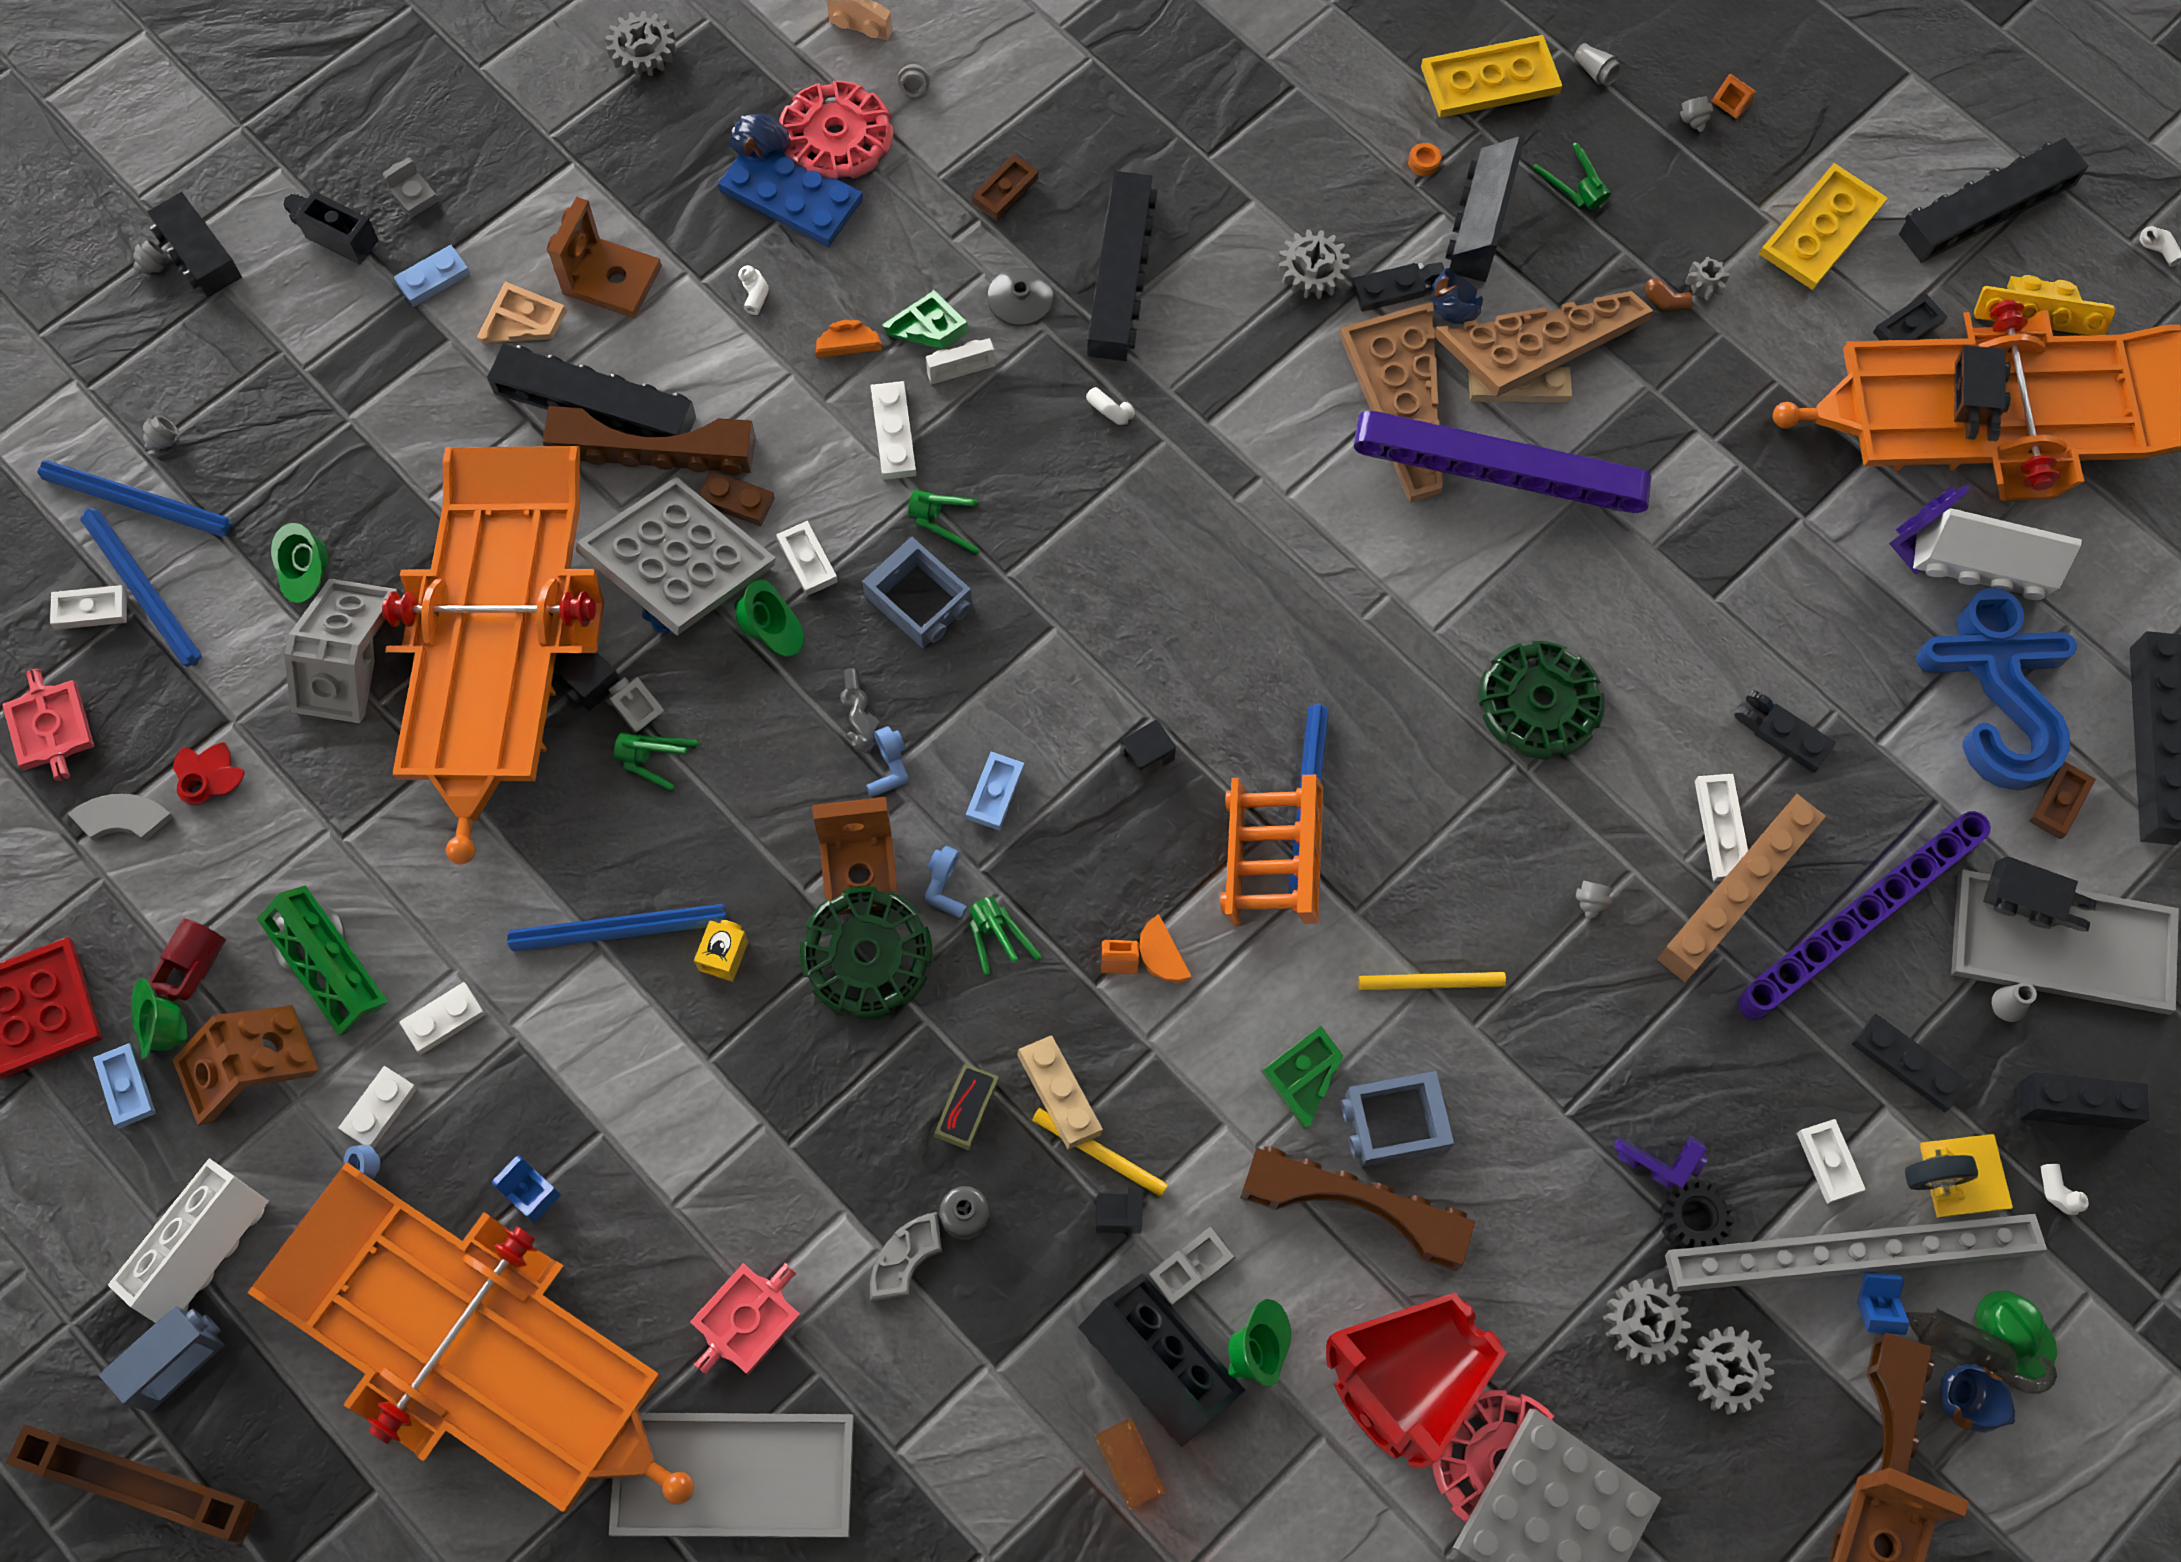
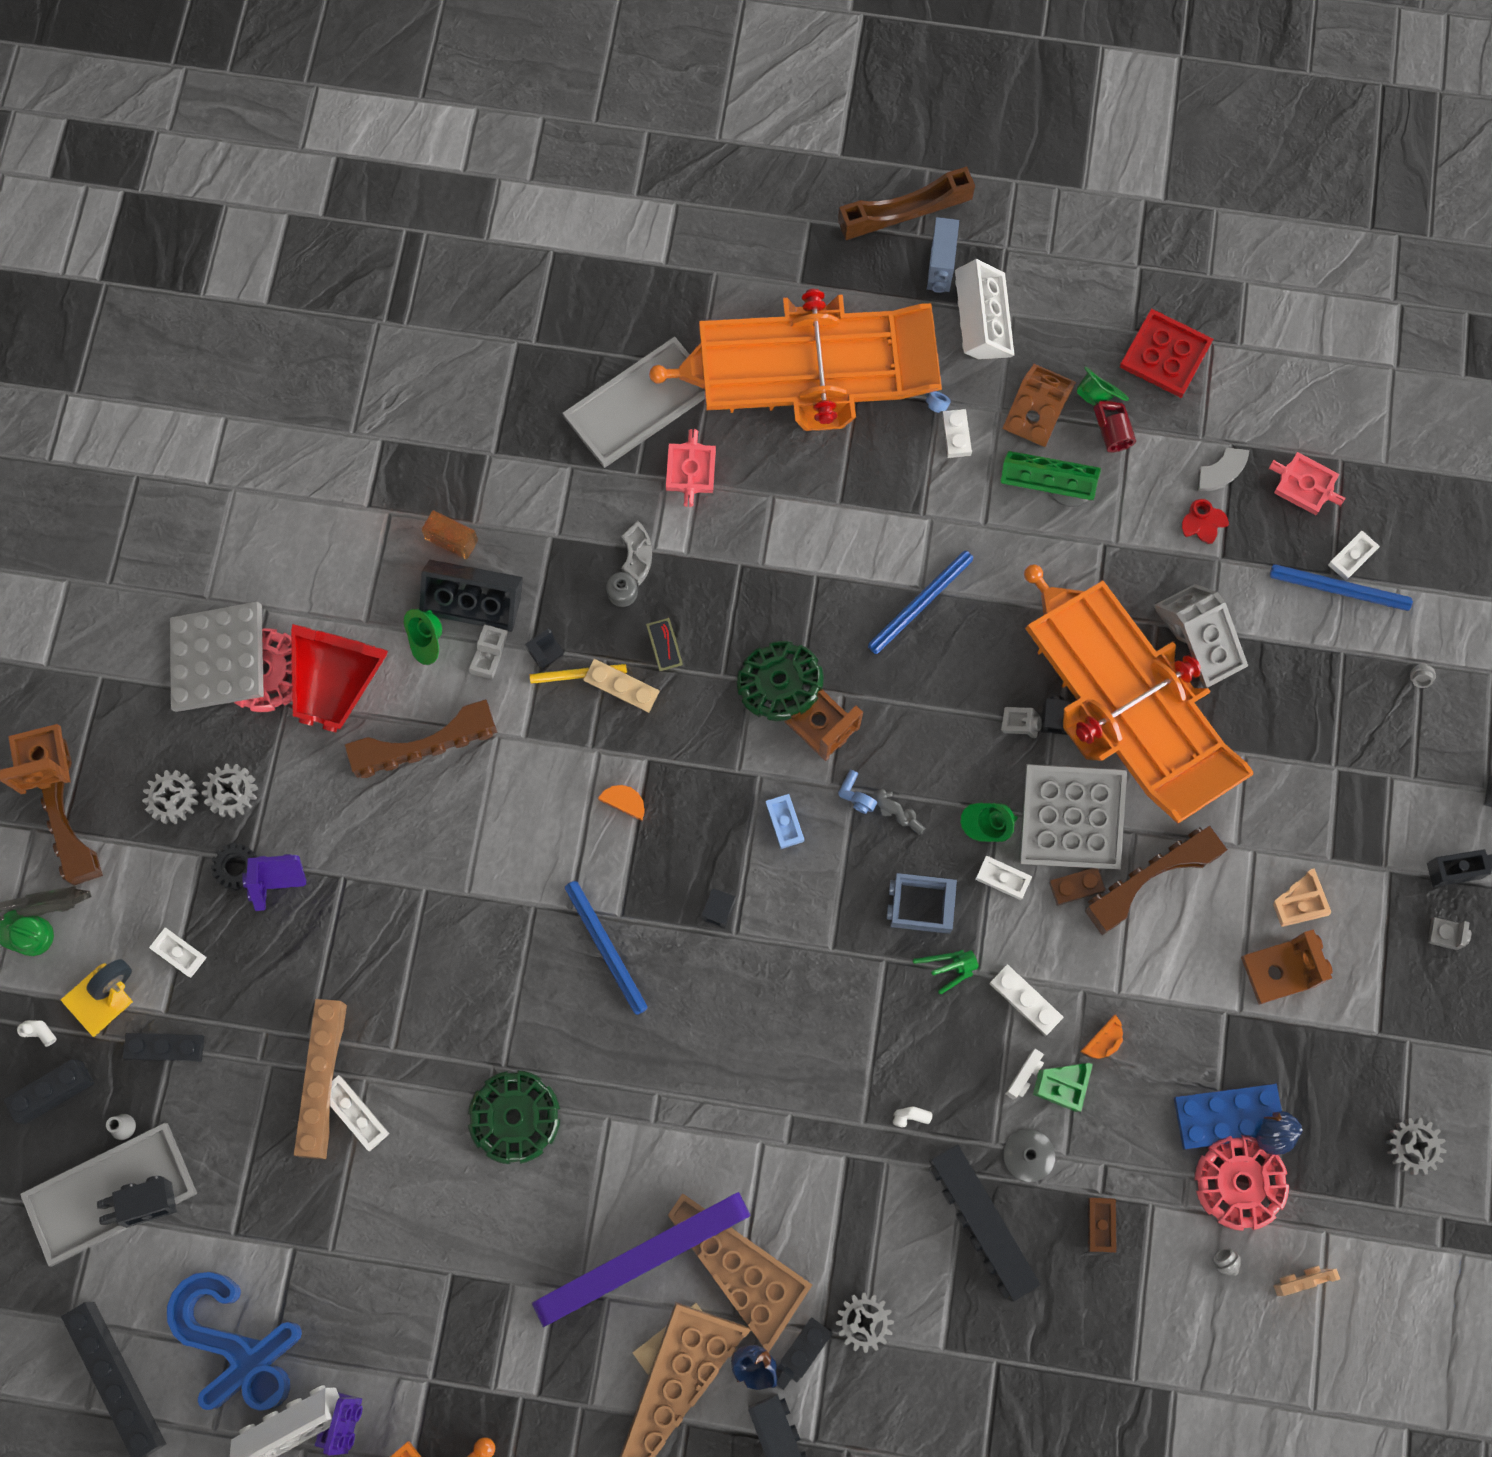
camera: 145 degrees right, 5 degrees up
(124, 1085) = (1085, 353): light blue plate -> none
(134, 498) = (1396, 631): blue axle -> none
(298, 561) = (1269, 659): green piece -> none
(432, 275) = (1379, 889): light blue plate -> none
(442, 1018) = (966, 495): white plate -> none
(526, 1188) = (847, 447): blue bracket -> none
(607, 398) = (1213, 881): black brick -> none
(636, 749) = (994, 695): green plant -> none
(721, 949) = (856, 627): yellow brick -> none
(755, 286) = (1188, 1031): white arm -> none
(942, 867) = (778, 757): medium blue plate -> none
(989, 918) = (731, 746): green plant -> none
(1120, 957) = (646, 783): orange slope -> none
(1304, 1074) = (499, 790): green wing -> none
(1305, 866) = (590, 918): orange fence -> none
(1430, 981) = (465, 895): yellow bar -> none
(1434, 1111) = (431, 830): sand blue window -> none
(1593, 898) = (404, 1012): light grey plate -> none
(1785, 731) = (351, 1209): black hinge -> none
(1853, 925) = (240, 1131): dark purple beam -> none
(1854, 1252) = (134, 908): light grey plate -> none
(1881, 1304) = (105, 889): blue bracket -> none
(1976, 1398) = (27, 873): dark blue hair -> none
(2062, 800) = (155, 1288): reddish brown plate -> none

